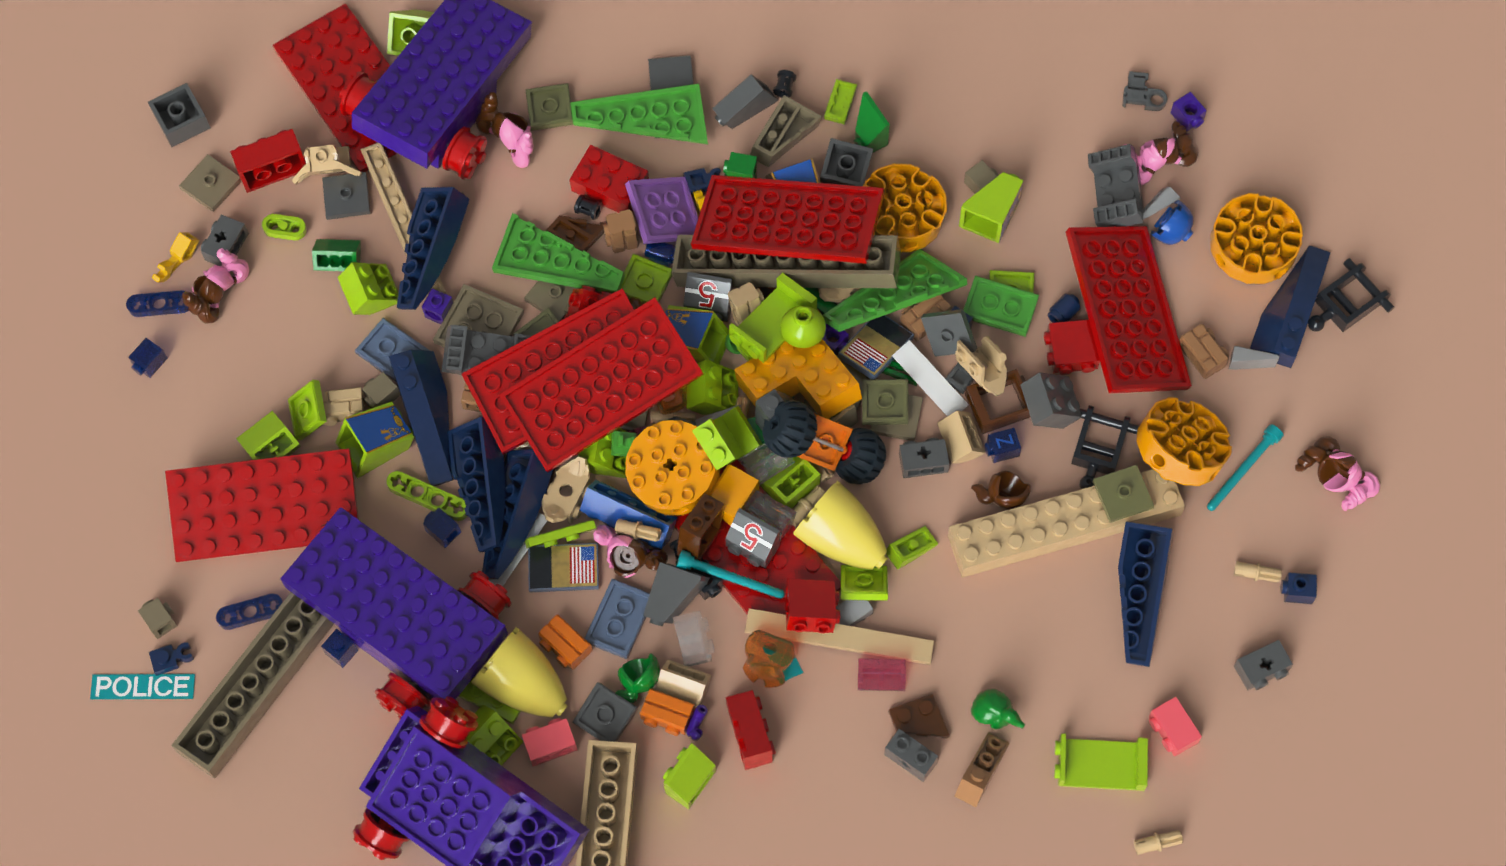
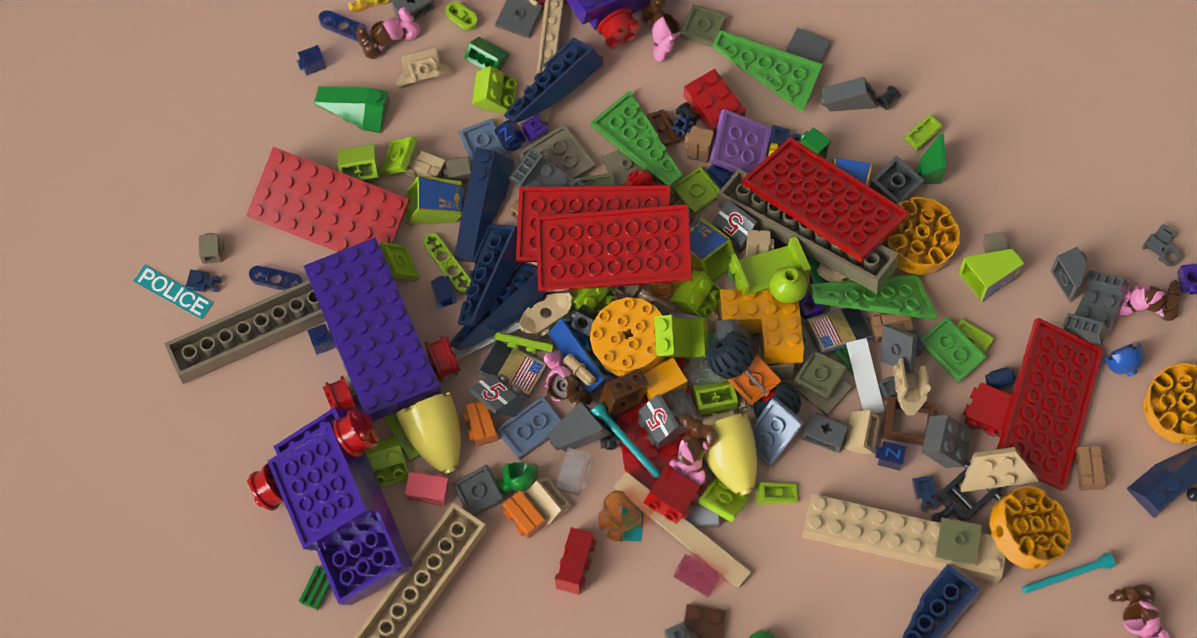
camera: 30 degrees right, 0 degrees up
(230, 379) = (355, 104): none -> green wedge
(273, 302) = (421, 66): none -> tan piece
(378, 520) = (399, 261): none -> lime tile
(415, 326) = (510, 135): none -> clear blue brick
(569, 601) = (499, 395): none -> dark grey slope
(588, 220) = (683, 125): none -> dark blue gear
(610, 483) = (579, 323): none -> black brick
(621, 442) = (605, 299): bright green tile -> none
(688, 776) = (510, 569): lime slope -> none
(696, 719) = (541, 532): dark purple arm -> none
(784, 130) = (865, 132): dark tan wedge -> none
(806, 546) = (693, 448): none -> reddish brown hair
(875, 482) = (775, 430): none -> sand blue tile
(1004, 489) = (872, 489): reddish brown hair -> none
(1057, 462) = (925, 490): none -> dark blue plate
(1070, 166) = (1069, 271): none -> dark grey slope
(1117, 402) = (996, 470): none -> tan wing
(1161, 200) = (1129, 335): light grey slope -> none
(1250, 359) = (1123, 493): light grey slope -> none

